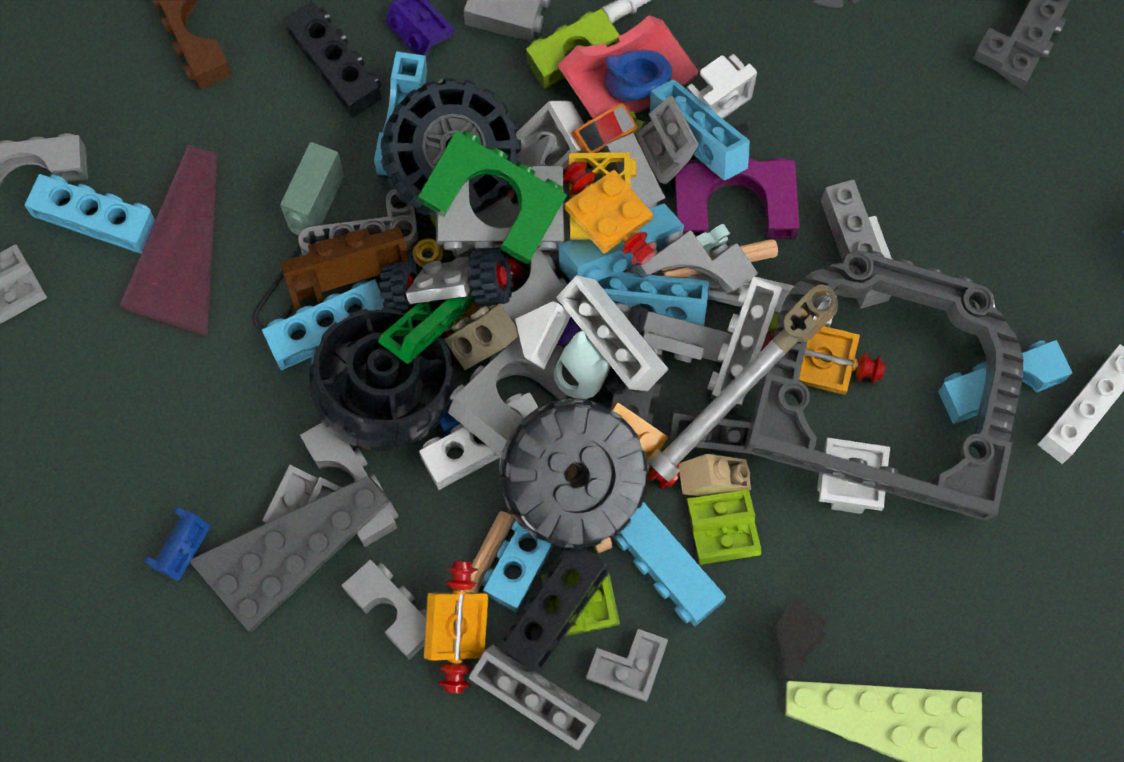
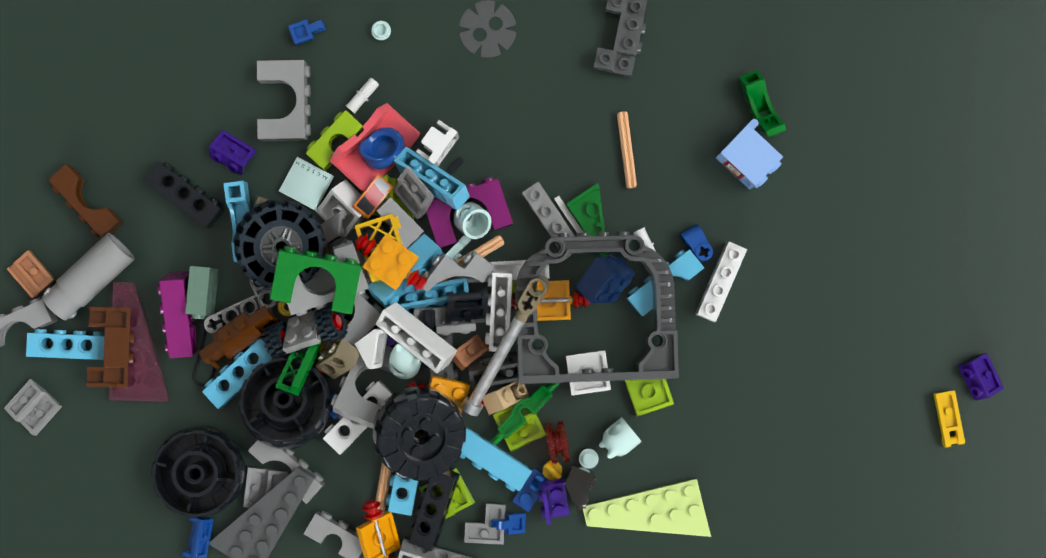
camera: 10 degrees left, 15 degrees up
(75, 102) = (31, 274): none -> nougat plate
(155, 124) = (87, 276): none -> light grey piece
(159, 233) = (116, 347): none -> reddish brown bracket
(232, 472) = (220, 469): none -> black wheel
(263, 219) = (177, 325): none -> magenta wedge
(518, 89) = (306, 183): none -> light aqua slope
(671, 670) = (512, 524): none -> blue plate
(680, 392) = (470, 352): none -> nougat plate
(694, 325) = (469, 309): none -> black plate
(713, 632) = (529, 492): none -> blue plate
(740, 206) = (472, 220): none -> light aqua piece
(748, 653) = (554, 498): none -> dark purple bracket
(754, 498) = (516, 419): none -> green piece
(755, 610) = (551, 471): none -> yellow plate
(778, 564) = (557, 442): none -> clear red wheel
(820, 605) = (588, 458): none -> light aqua plate
(877, 589) = (619, 439): none -> light aqua piece
(917, 243) = (588, 212): none -> green wing
(922, 333) = (605, 279): none -> dark blue brick
(938, 537) = (649, 395): none -> lime plate
(993, 182) = (626, 148): none -> light nougat axle
(1071, 337) = (694, 240): none -> blue piece

